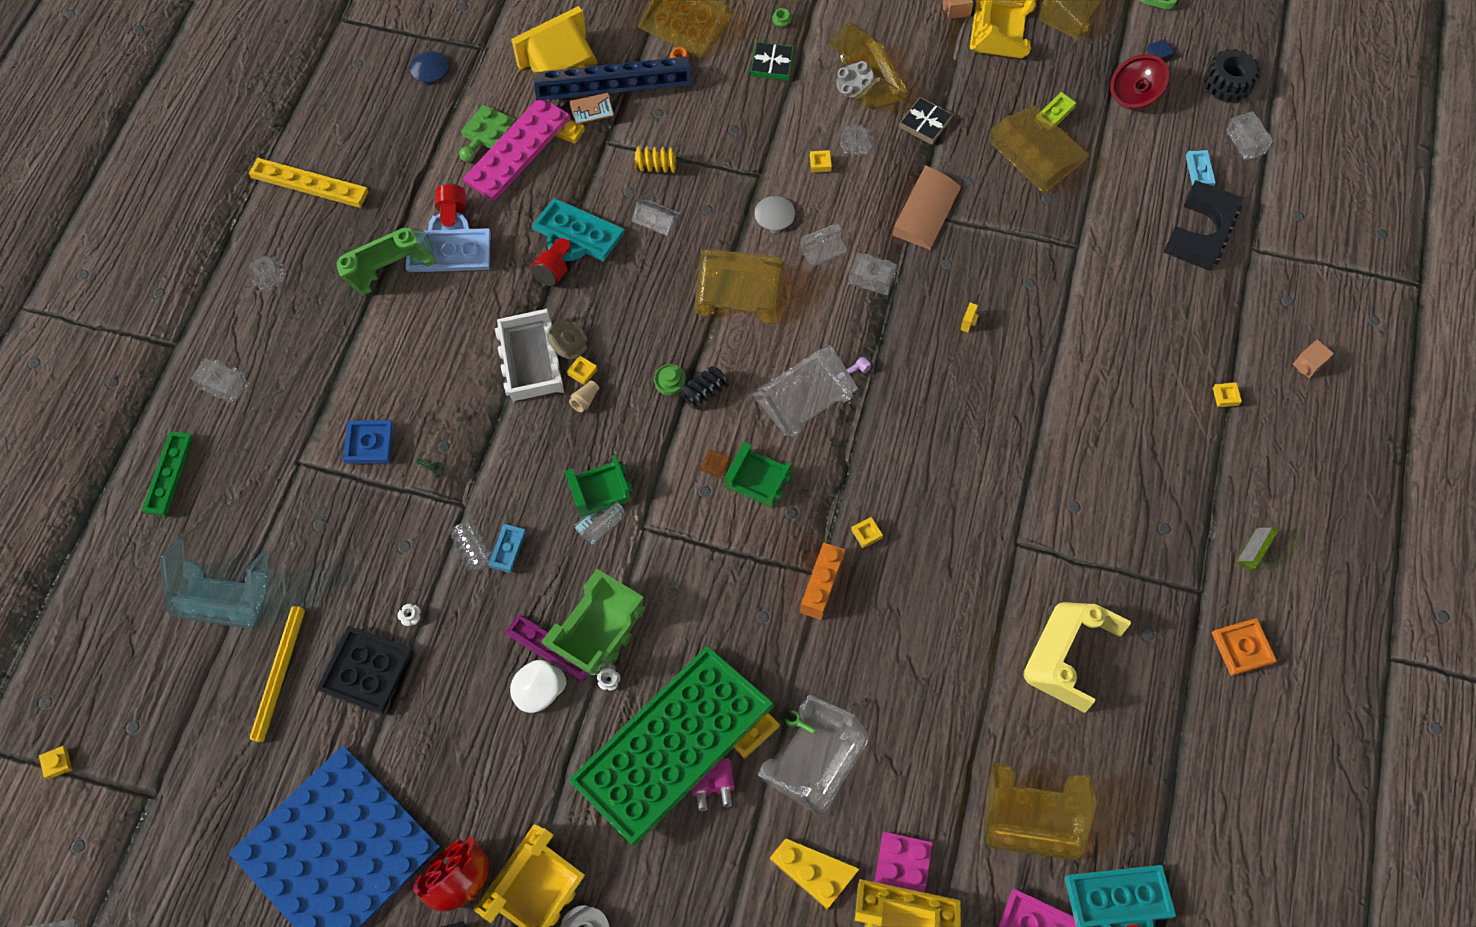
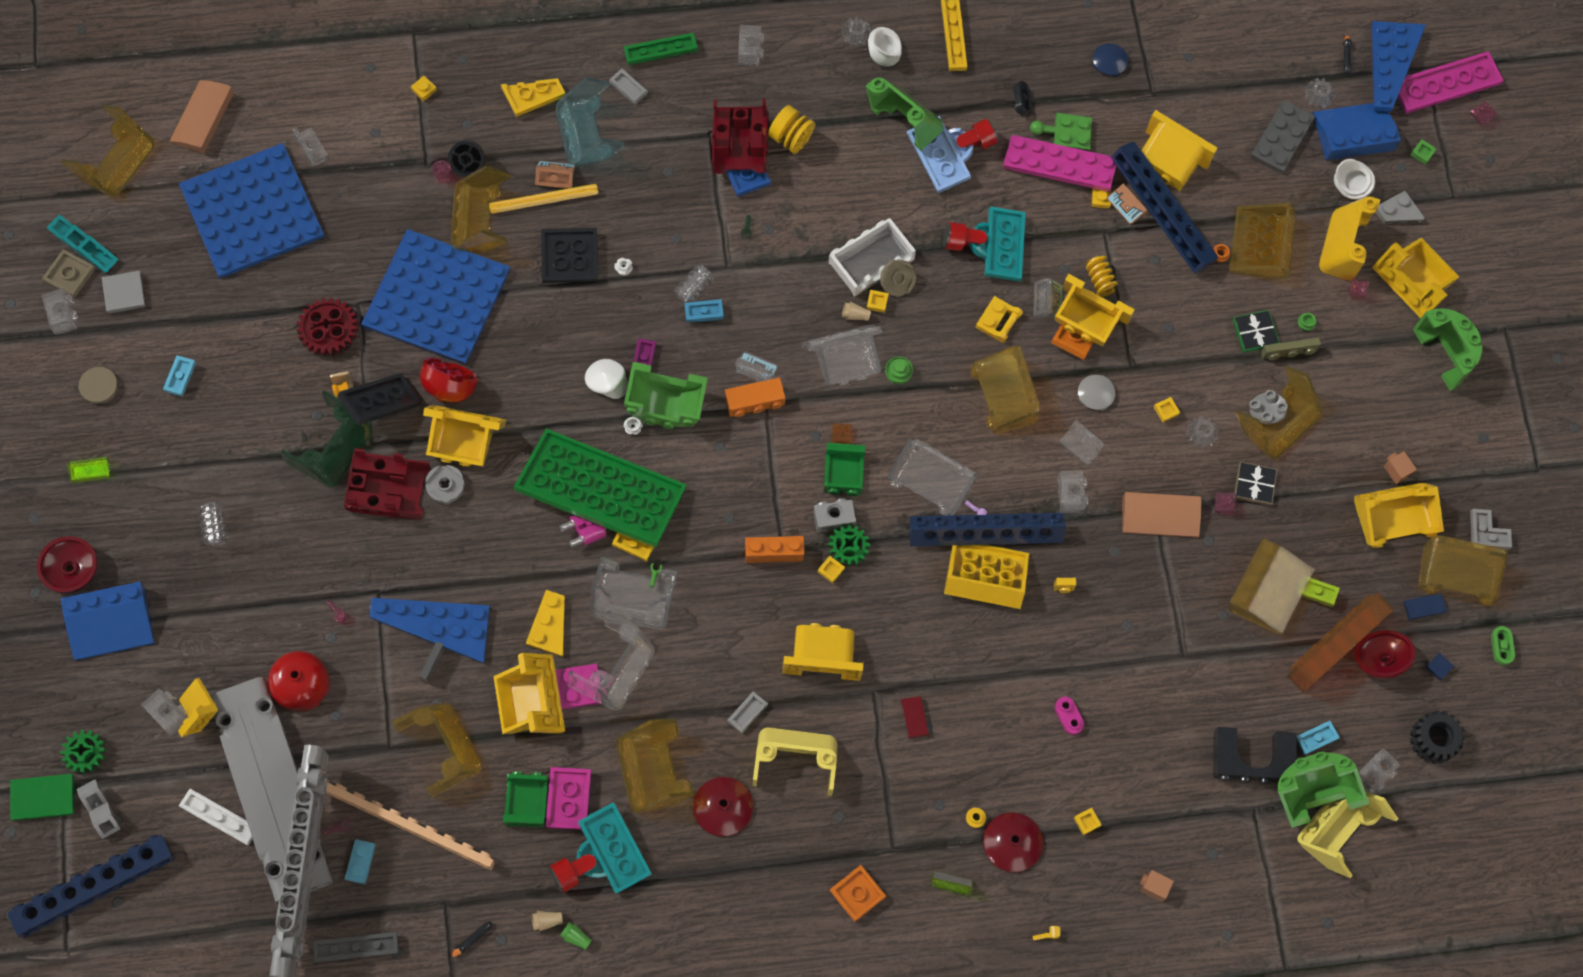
camera: 60 degrees right, 5 degrees up
(142, 636) = (531, 96): none -> yellow wing
(172, 777) = (442, 167): none -> clear pink wheel
(179, 742) = (466, 157): none -> black cylinder
(193, 525) = (628, 86): none -> light grey tile
(248, 764) = (472, 210): none -> clear yellow windscreen
(255, 648) = (554, 174): none -> nougat panel
(299, 252) = (884, 46): none -> white piece
(324, 429) = (740, 138): none -> dark red piece
(344, 373) = (792, 129): none -> yellow wheel
(422, 152) = (1022, 98): none -> black plate
(599, 487) = (781, 354): green panel -> none
(629, 420) = (846, 354): none -> clear windscreen
(635, 534) = (754, 397): none -> orange brick
(651, 272) = (993, 316): none -> yellow plate
(693, 182) = (1089, 313): none -> yellow windscreen
(703, 385) = (903, 399): black piece -> none
(709, 207) = (1071, 343): none -> orange plate
(804, 40) = (1290, 349): none -> olive plate
(812, 493) = (826, 523): none -> light grey brick
(851, 495) = (854, 551): none -> green gear
(883, 365) = (986, 529): none -> dark blue brick
(930, 383) = (987, 574): none -> yellow slope
(930, 822) = (615, 688): none -> clear windscreen
(936, 150) = (1225, 502): none -> clear pink plate
(960, 575) = (823, 651): none -> yellow windscreen
(999, 684) = (747, 712): none -> light grey tile
(1061, 514) = (914, 717): none -> dark red tile
(1085, 758) = (723, 820): none -> dark red dish
(1098, 39) = (1425, 606): none -> dark blue tile
(1109, 369) = (1068, 715): none -> dark pink plate
(1117, 111) = (1339, 641): none -> clear orange brick
(1187, 501) = (973, 823): none -> yellow plate
(1221, 482) = (1003, 851): none -> dark red dish
(1253, 172) = (1318, 782): none -> bright green cylinder
(1287, 189) = (1334, 826): none -> light yellow windscreen
(1337, 471) = (1054, 933): none -> yellow hand

